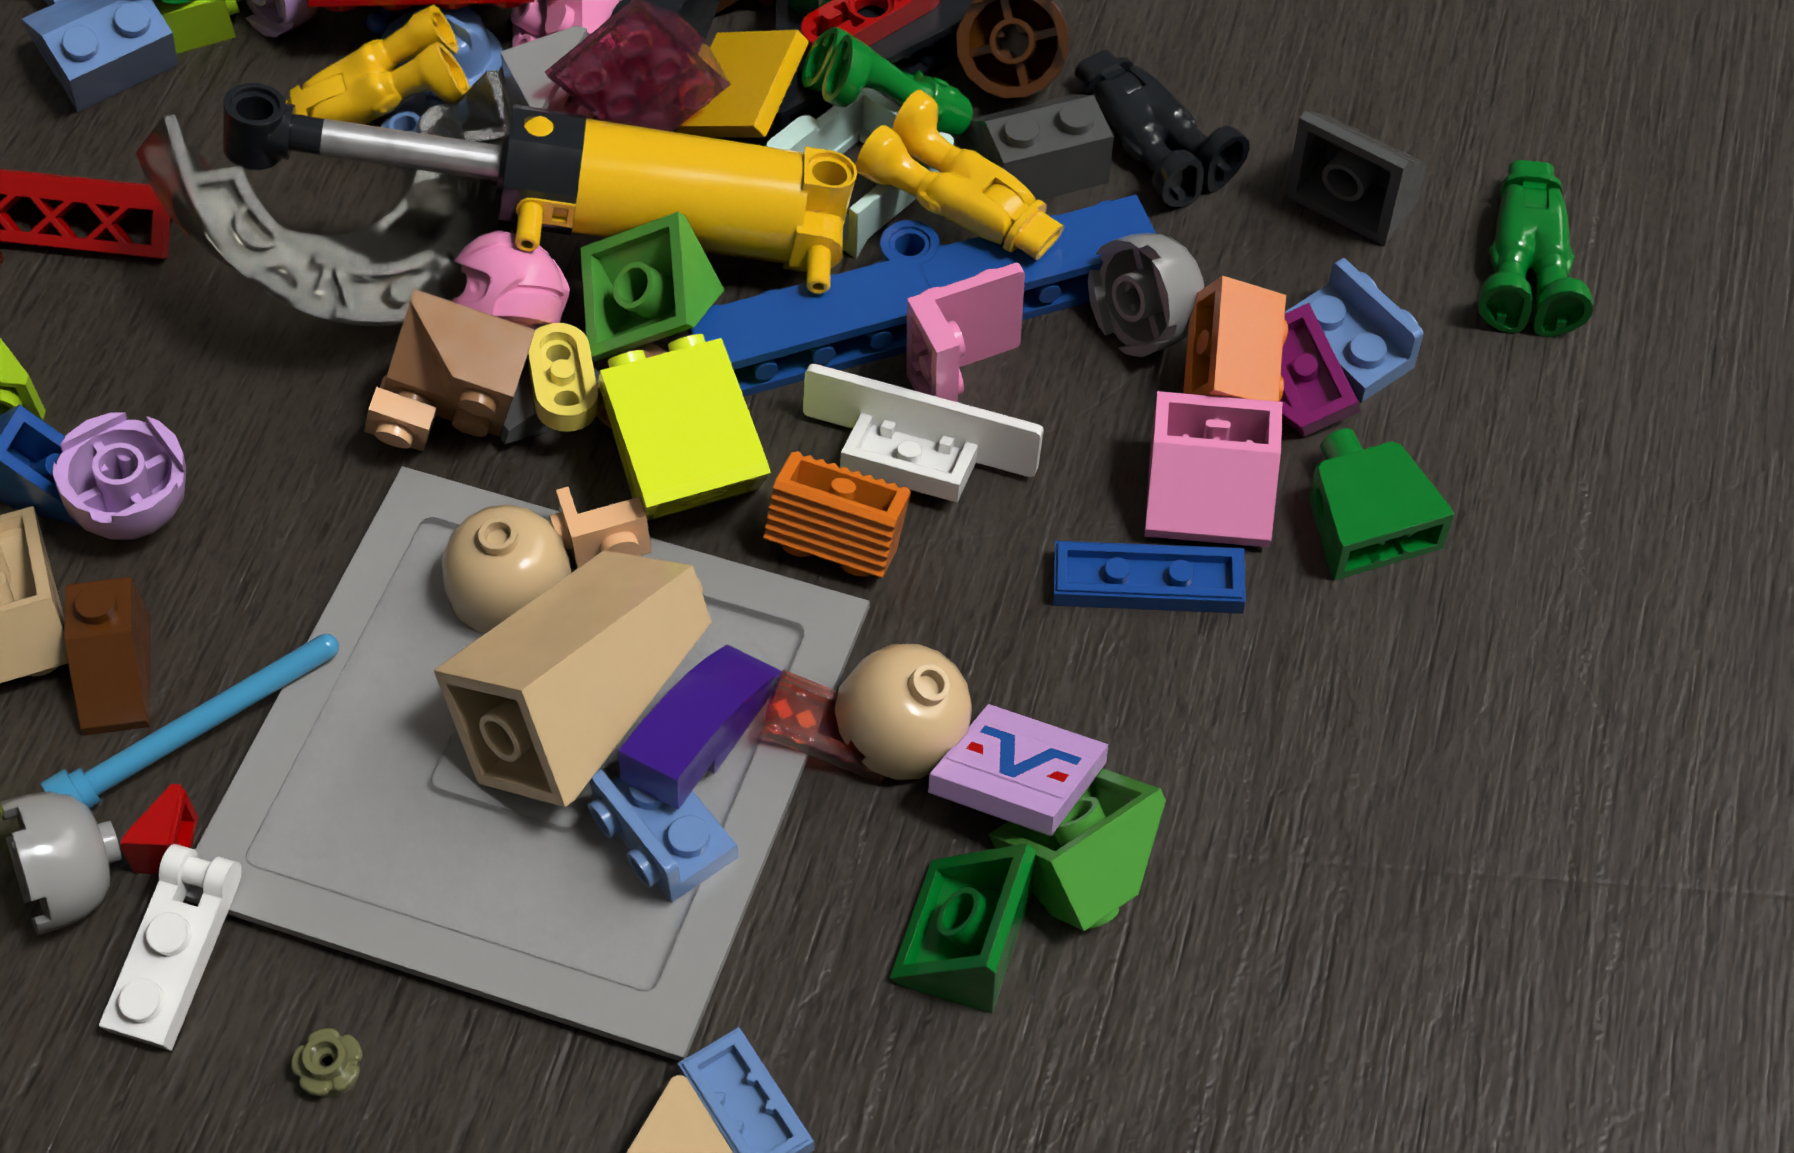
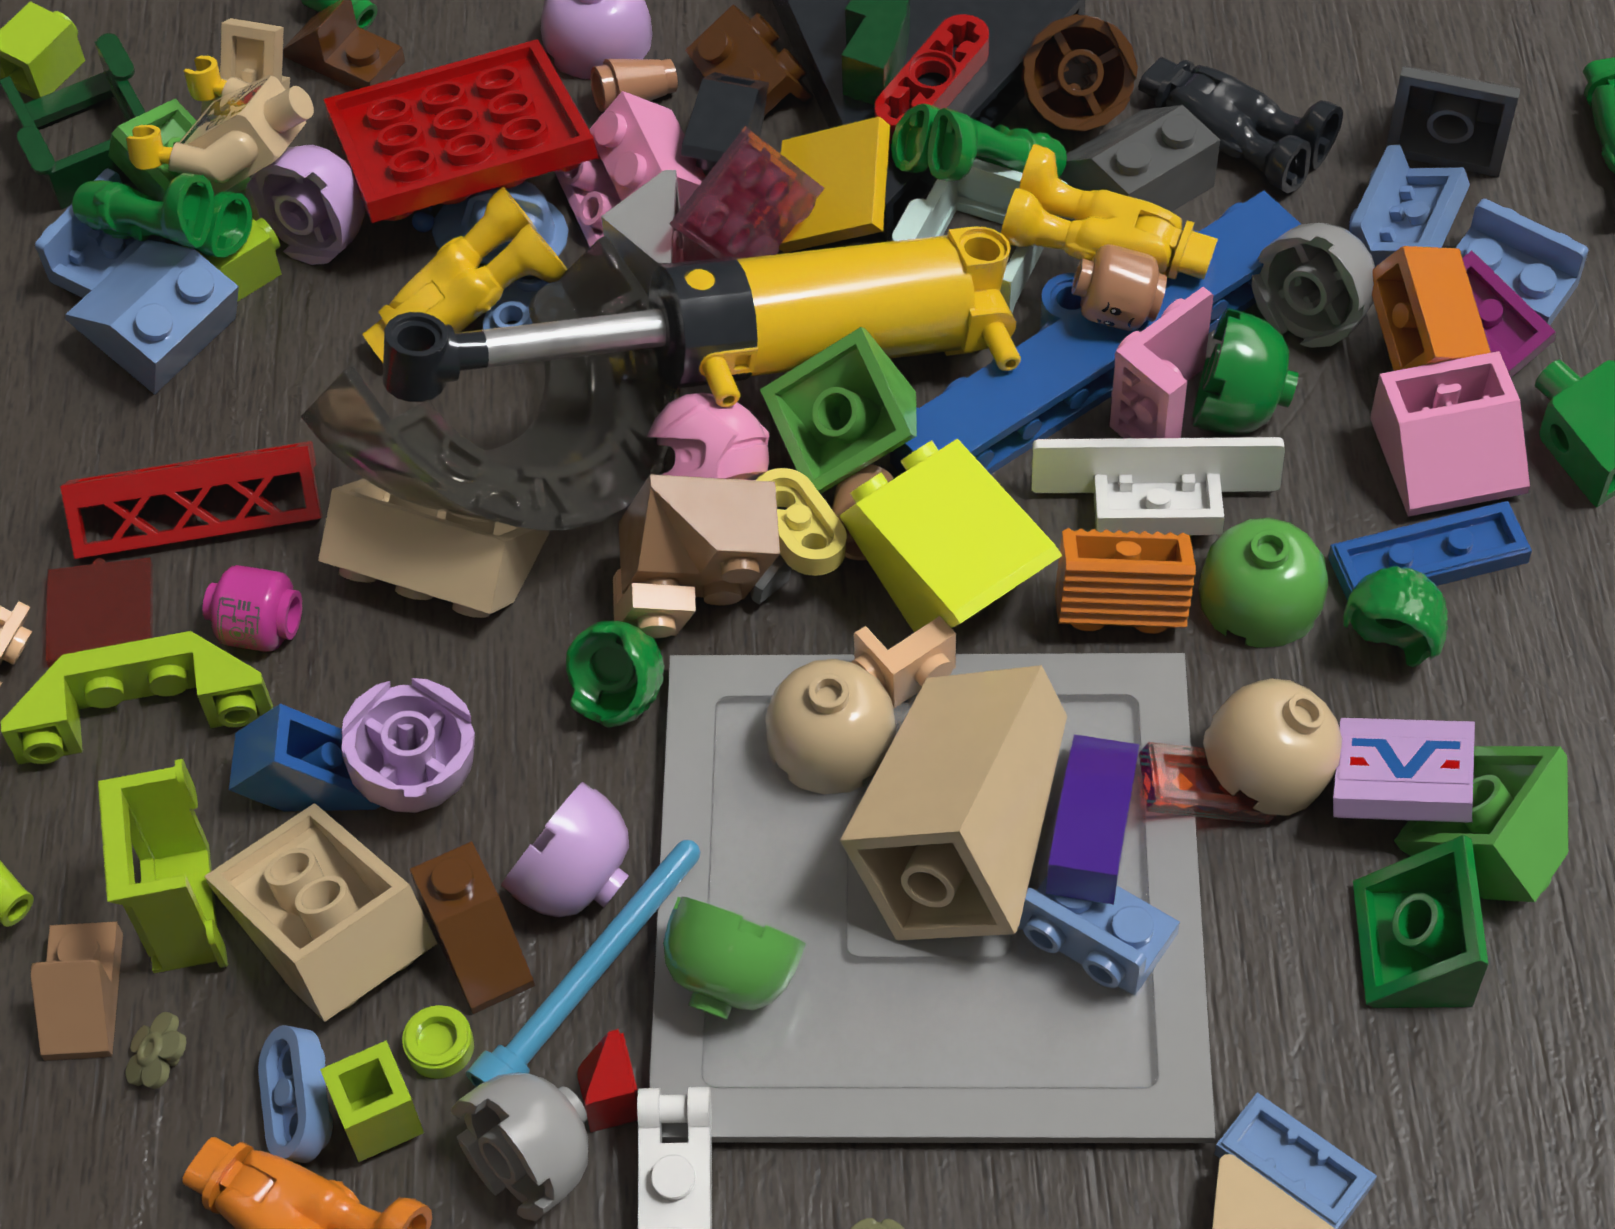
camera: 15 degrees left, 0 degrees up
(38, 749) = (438, 1041): none -> lime tile
(61, 319) = (253, 608): none -> dark pink head
(221, 618) = (573, 857): none -> lavender cylinder
(230, 314) = (427, 550): none -> tan slope
(304, 750) = (727, 958): none -> bright green cylinder
(340, 465) = (613, 672): none -> green hair
(946, 243) = (1119, 287): none -> nougat head
(975, 557) = (1264, 582): none -> bright green cylinder
(1037, 359) = (1243, 376): none -> green cylinder
(1084, 617) = (1400, 610): none -> green hair
(1273, 245) = (1407, 205): none -> medium blue bracket

